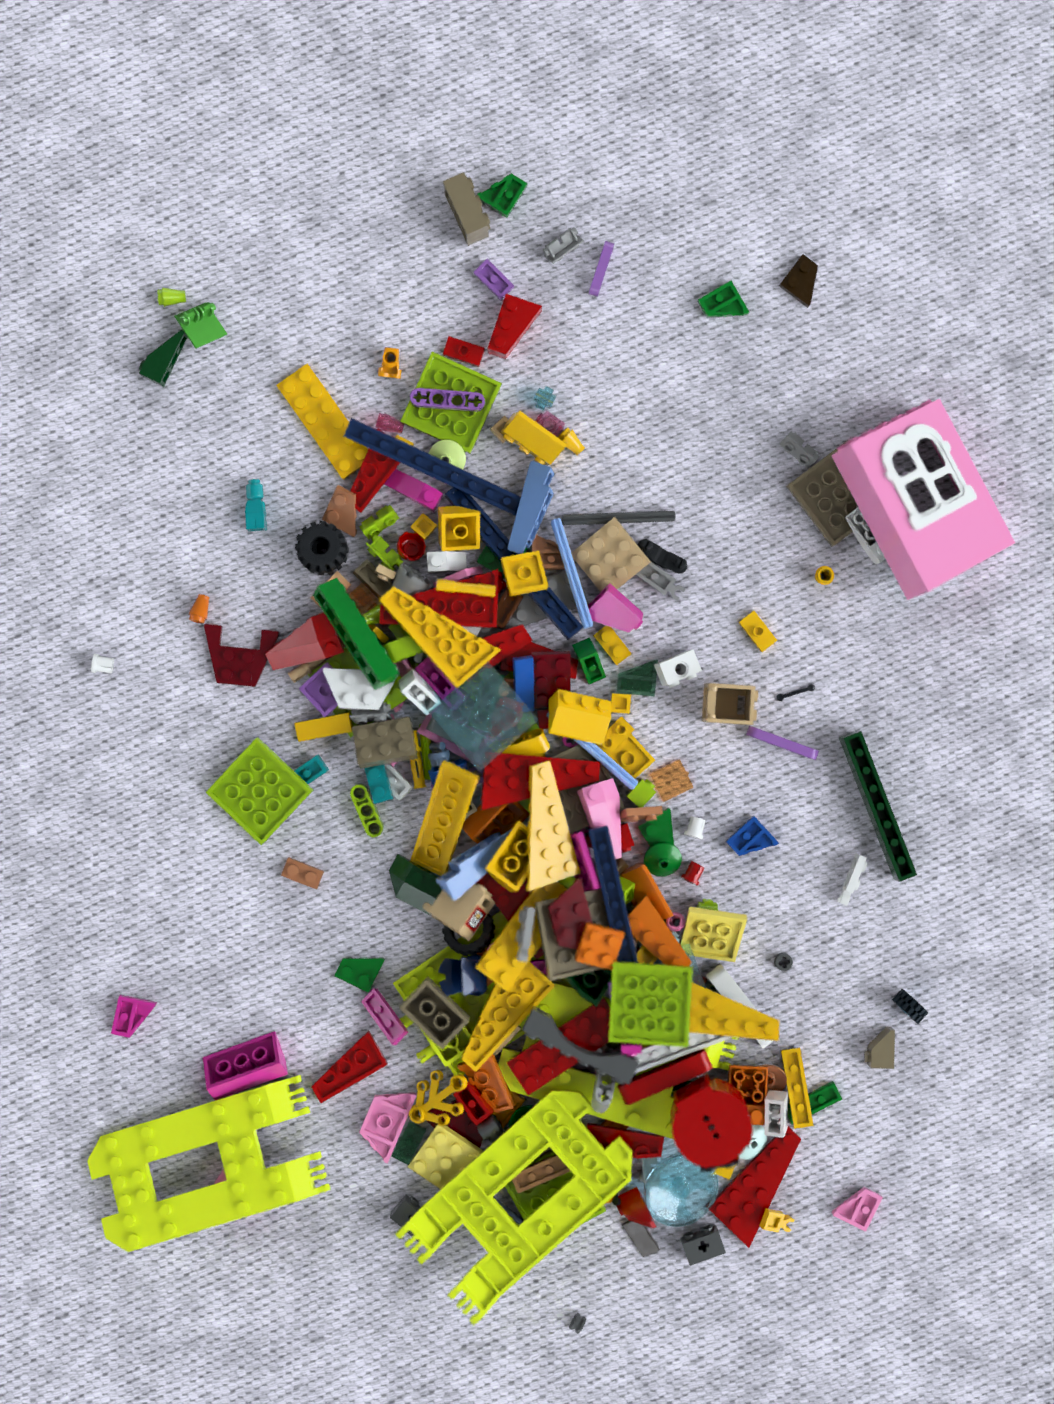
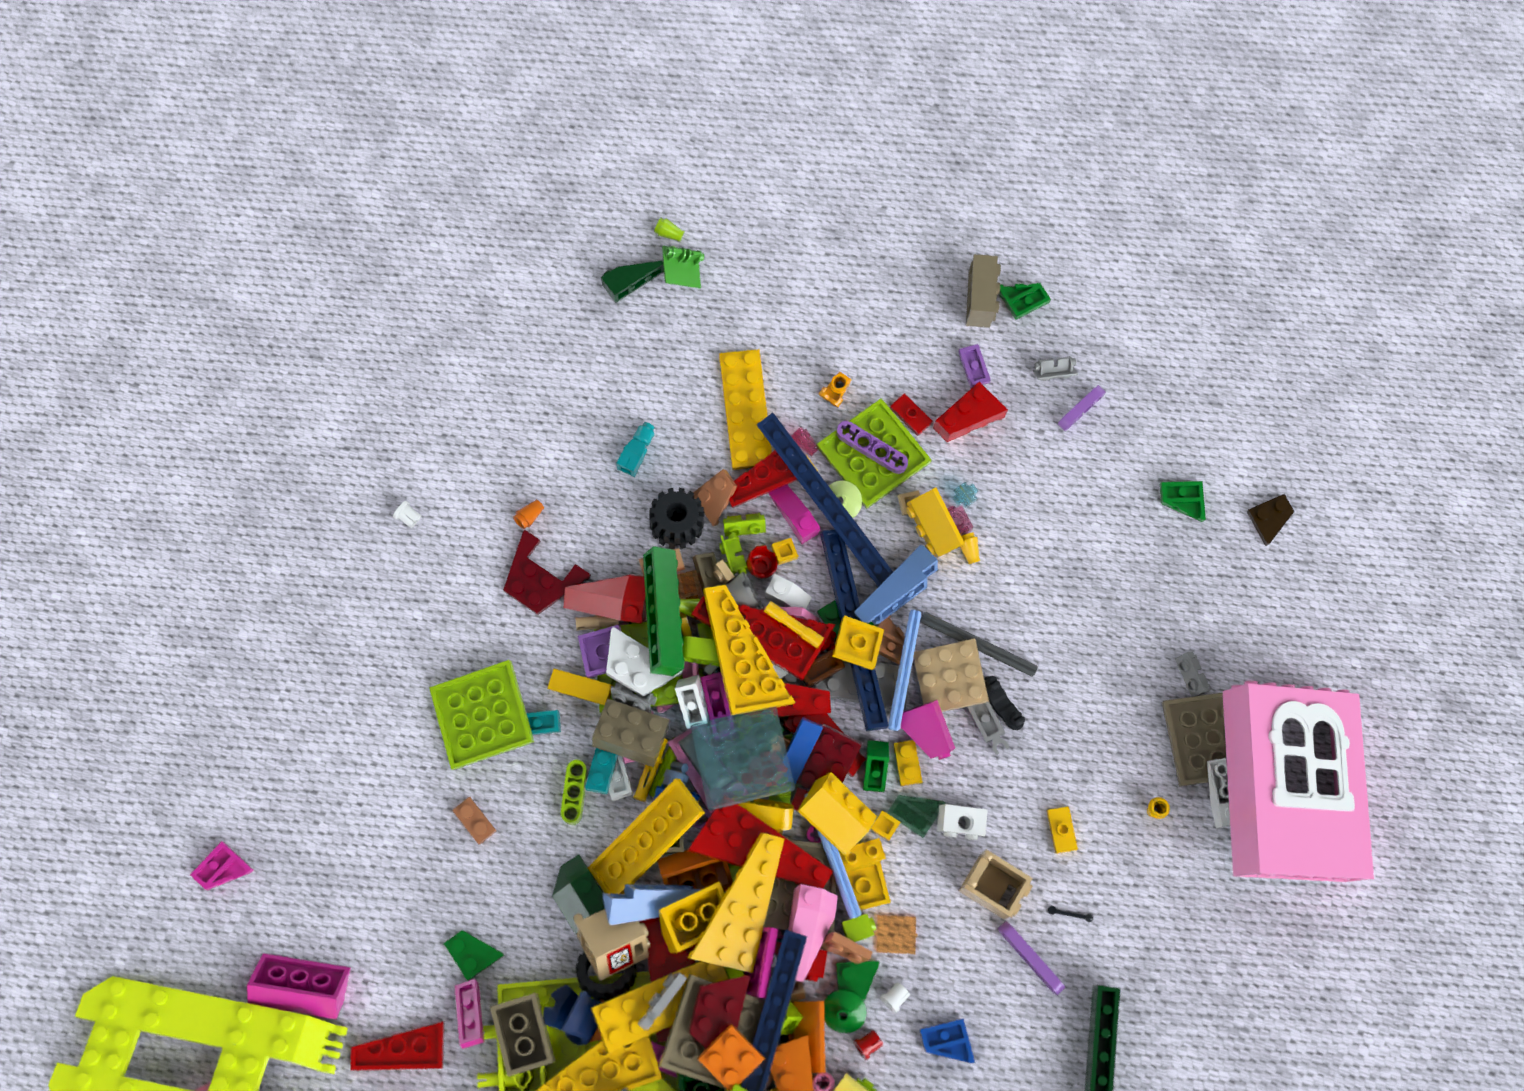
camera: 30 degrees right, 15 degrees down
(458, 528) = (817, 569): yellow slope -> none

